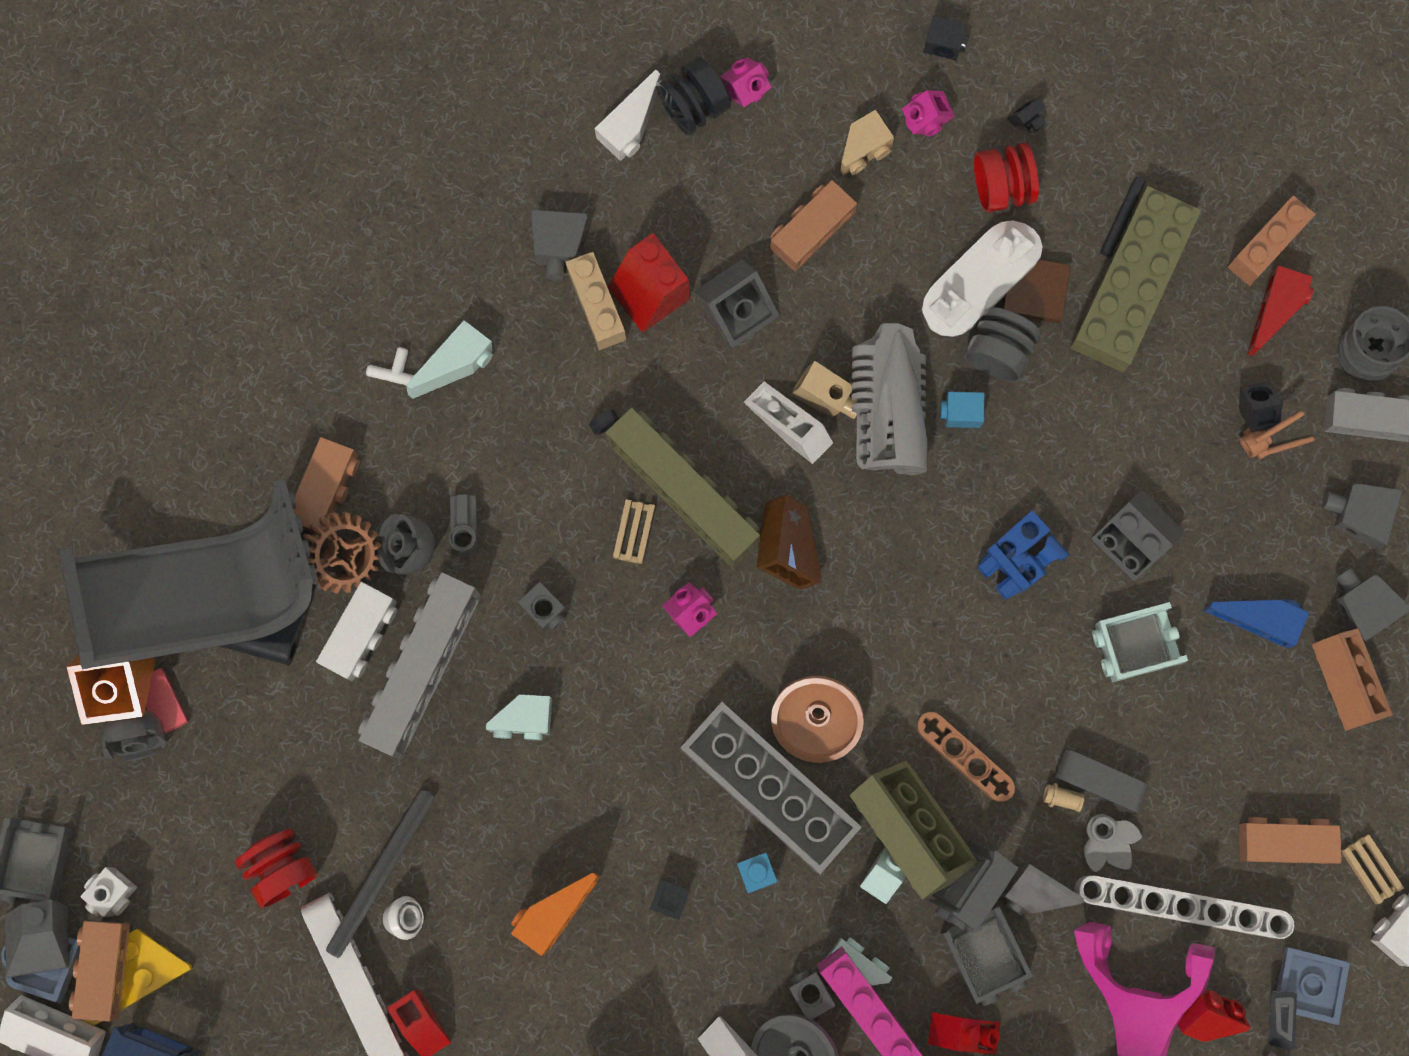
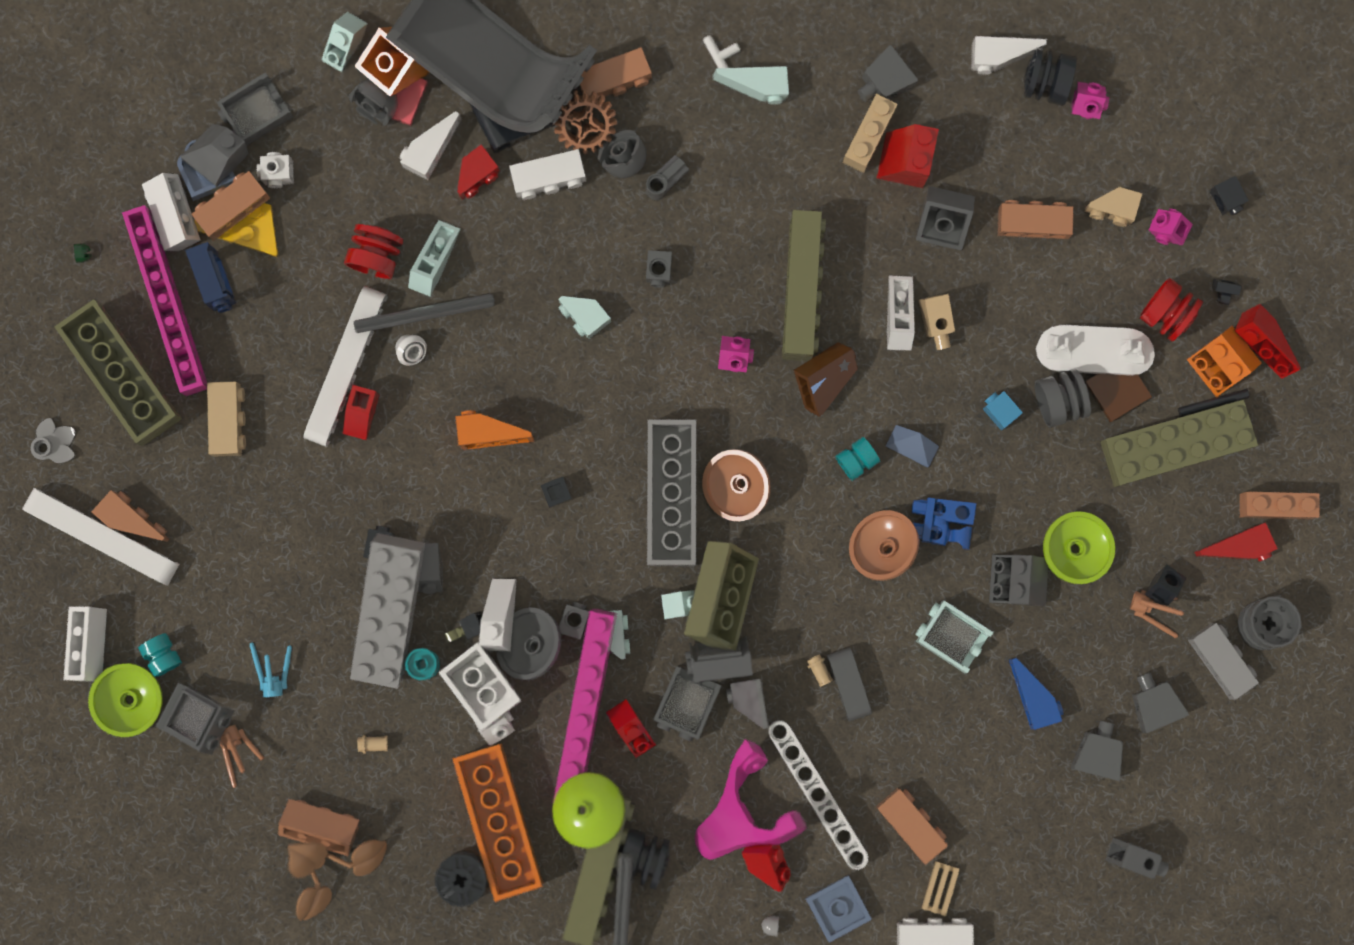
camera: 45 degrees right, 5 degrees up
(47, 712) = (343, 40): none -> light aqua slope
(226, 725) = (427, 148): none -> white slope
(290, 698) = (475, 171): none -> red slope
(336, 816) = (433, 258): none -> light aqua slope
(420, 666) = (560, 227): light grey brick -> none
(603, 422) = (800, 203): black tile -> none
(639, 506) = (769, 271): tan tile -> none
(756, 873) = (616, 528): dark azure brick -> none
(890, 392) = (971, 358): light grey connector -> none
(892, 582) = (859, 457): none -> teal wheel
(923, 521) = (912, 445): none -> sand blue slope
(963, 759) = (796, 592): nougat beam -> none
(980, 636) = (875, 536): none -> nougat dish
(1094, 173) = (1224, 361): none -> orange slope
(1107, 119) = (1265, 337): none -> red slope
(1113, 845) = (817, 724): light grey plate -> none
(1168, 440) = (1094, 546): none -> lime dish
(1283, 1020) = (803, 907): black sticker -> none
(1351, 679) = (1044, 780): nougat brick -> none

